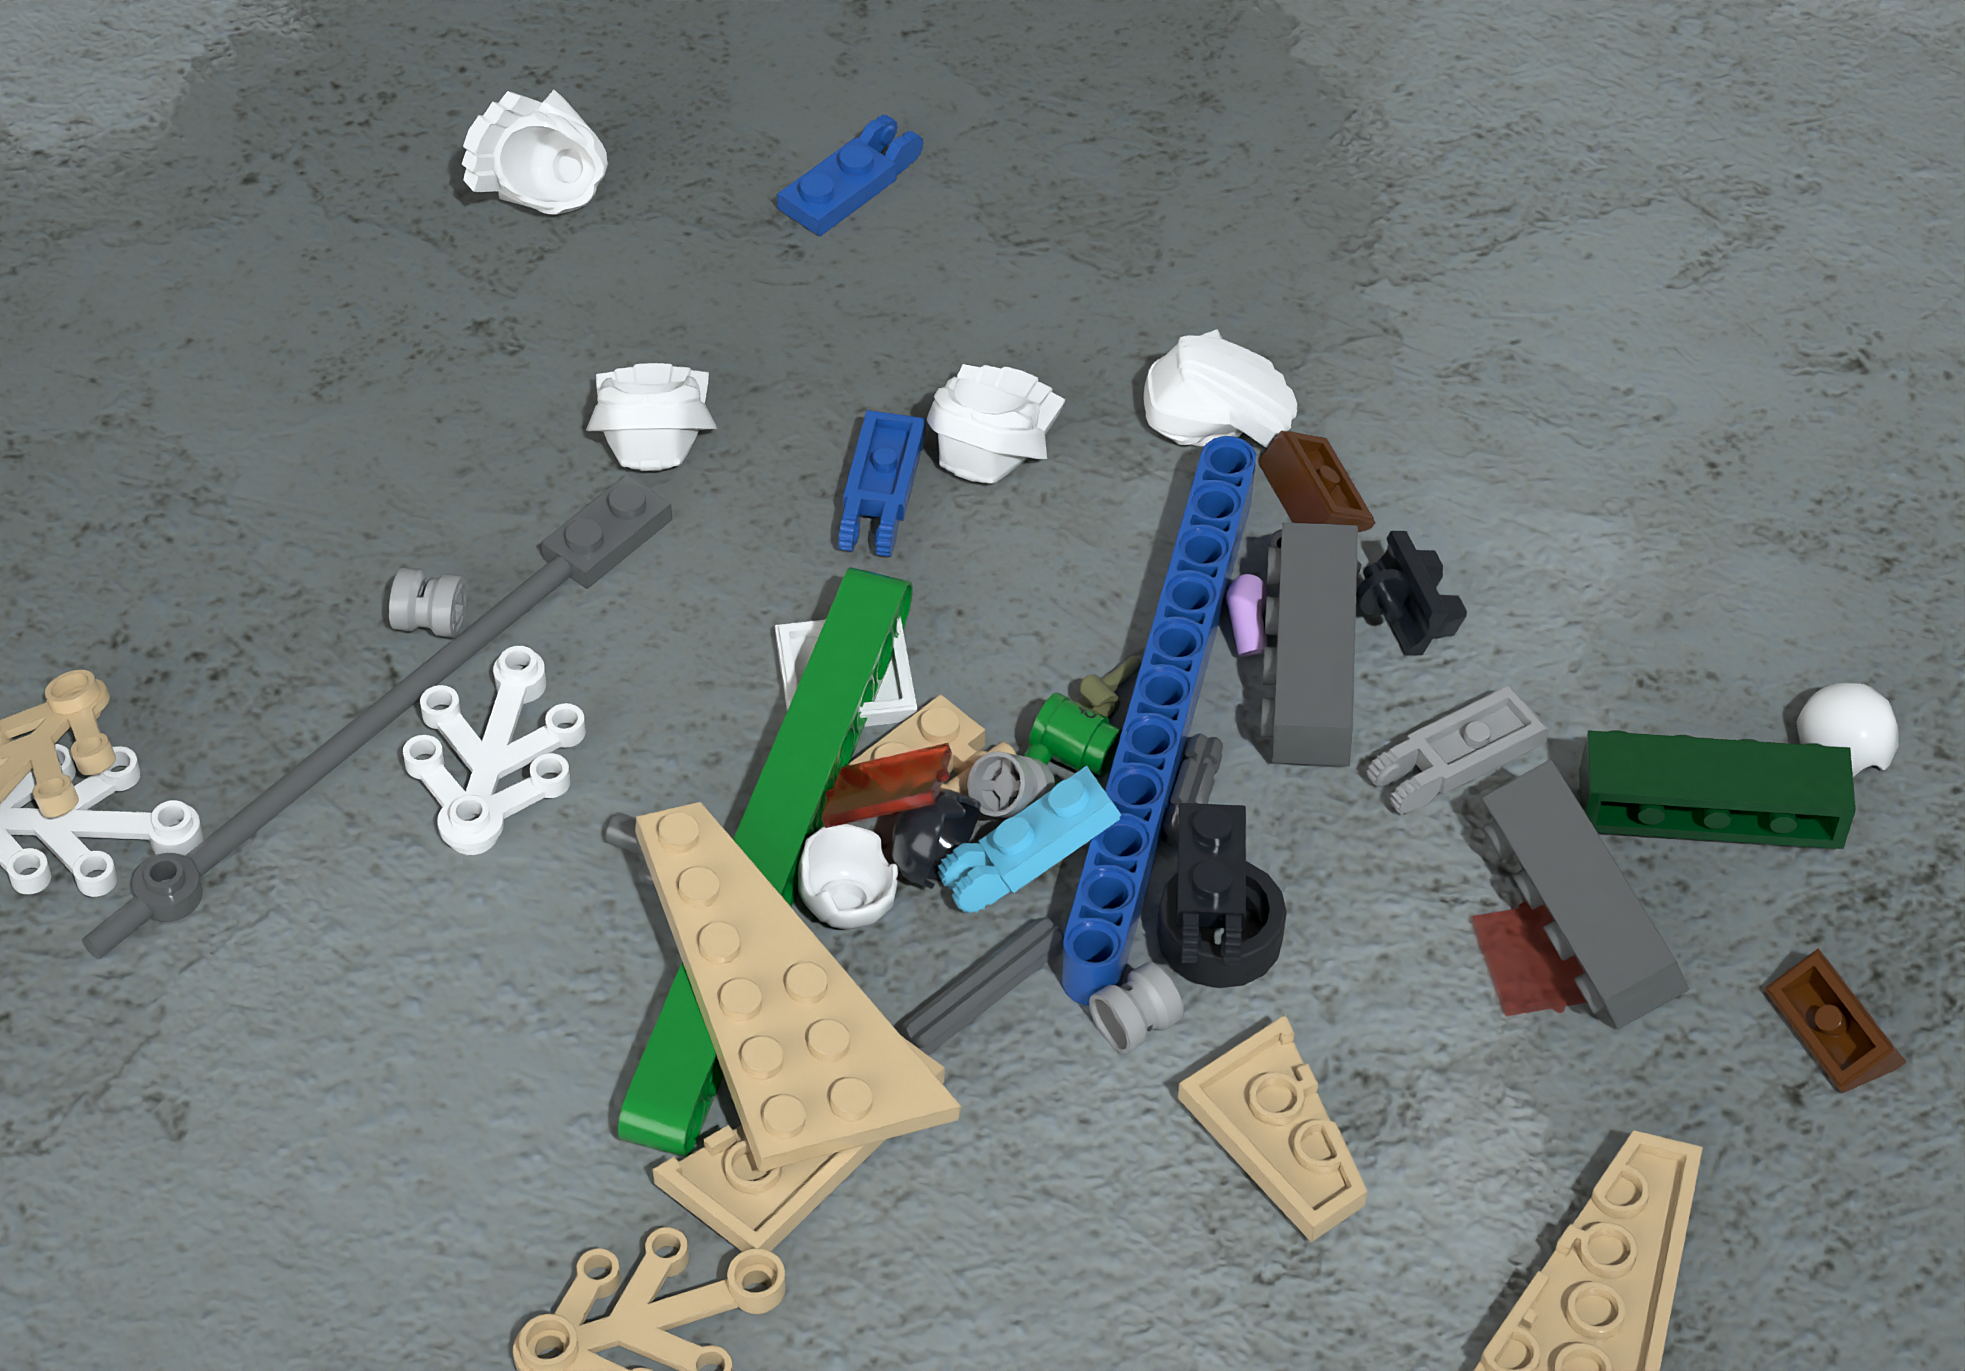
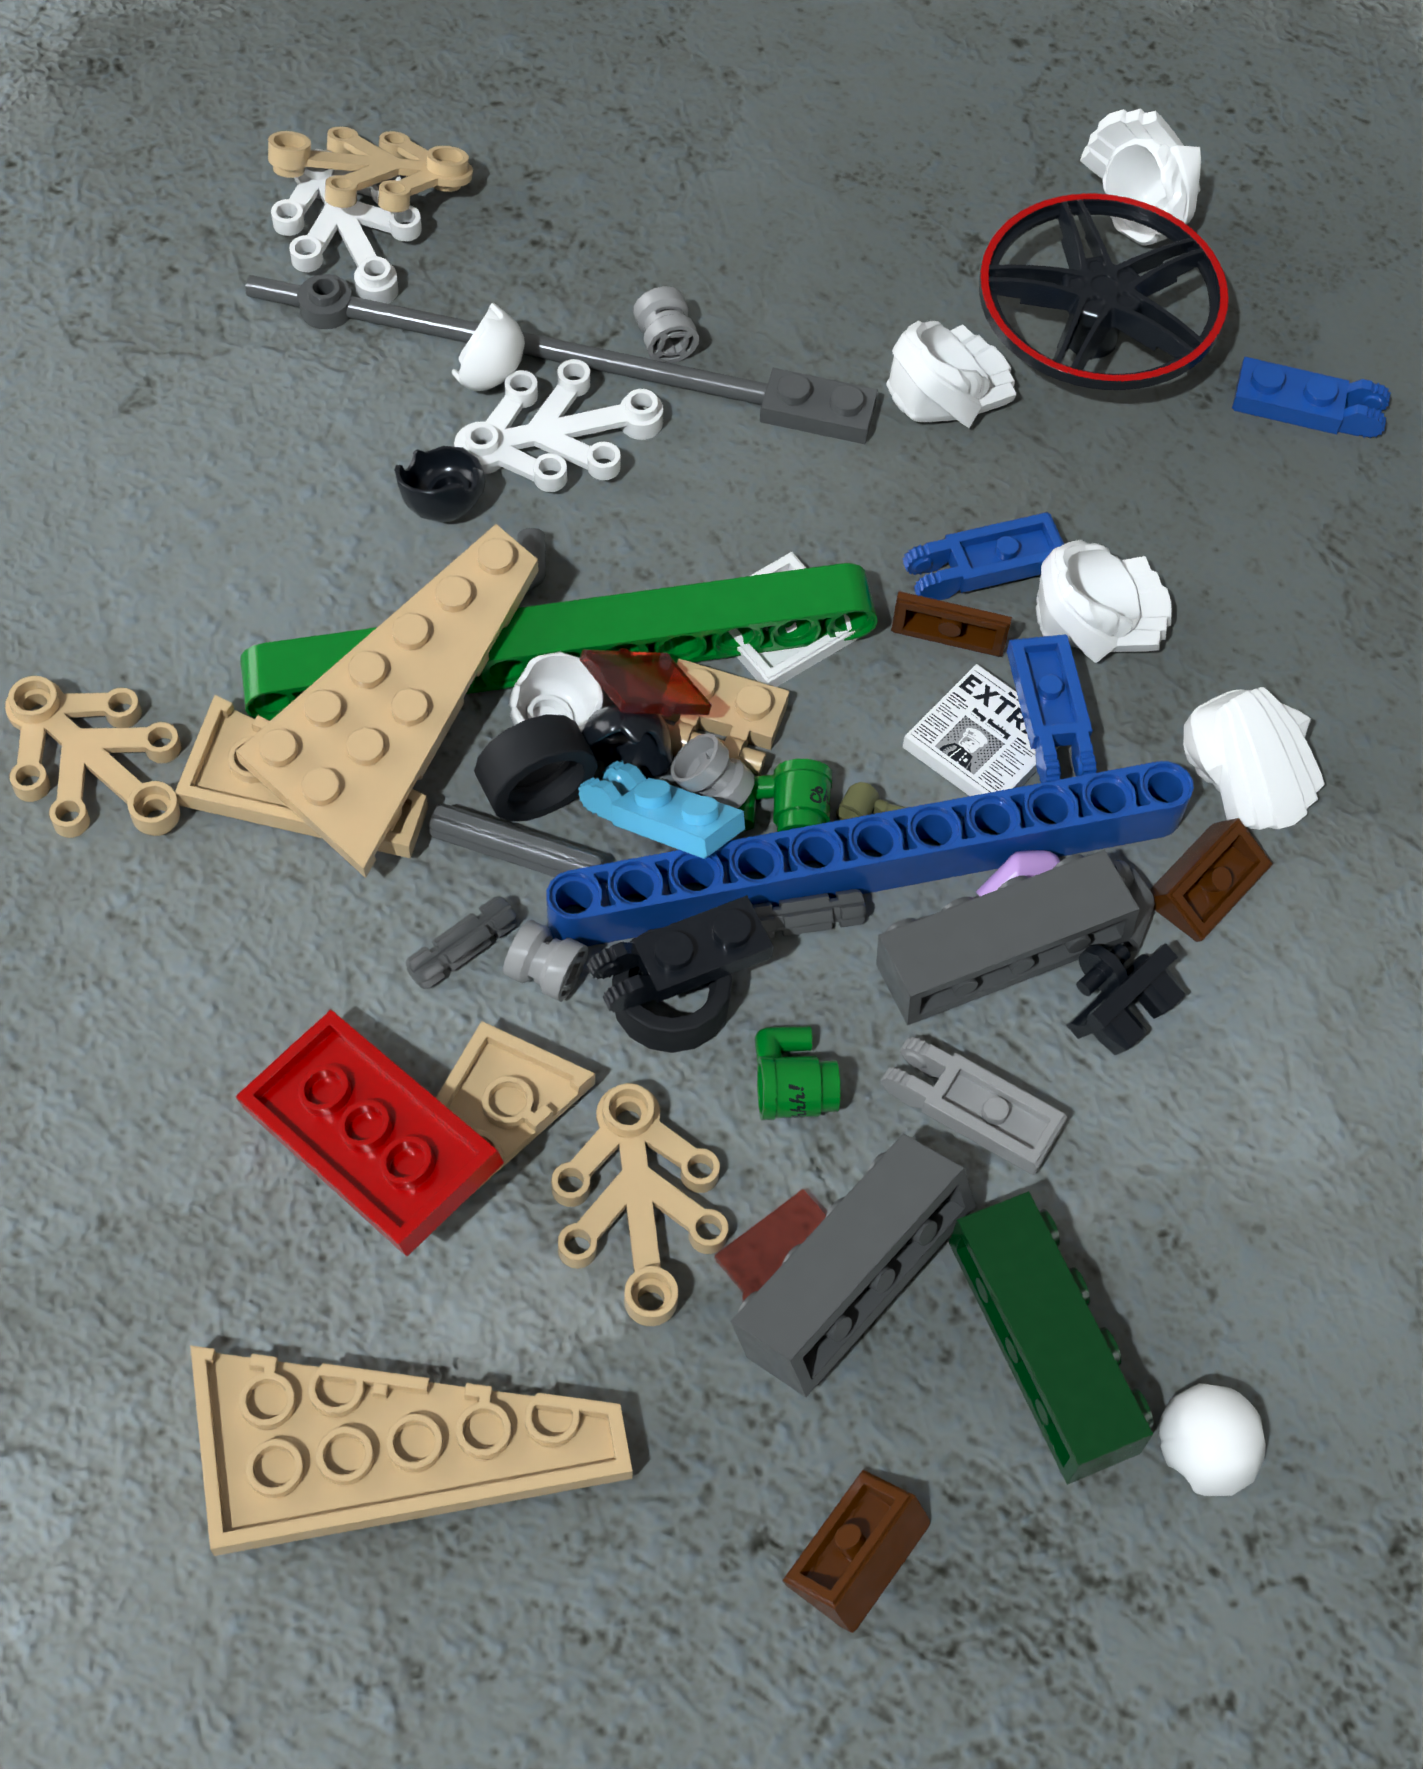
camera: 60 degrees right, 10 degrees up
(361, 758) = (491, 351): none -> white hair
(505, 868) = (441, 483): none -> black hair
(659, 246) = (1104, 295): none -> black wheel
(926, 918) = (535, 767): none -> black tyre
(941, 539) = (950, 624): none -> reddish brown slope
(1069, 1075) = (461, 942): none -> dark grey axle
(1078, 575) = (975, 736): none -> white tile
(1095, 502) = (1052, 703): none -> blue hinge
(1259, 1215) = (370, 1132): none -> red plate
(1372, 874) = (793, 1084): none -> green piece
(1420, 1039) = (638, 1191): none -> tan plant

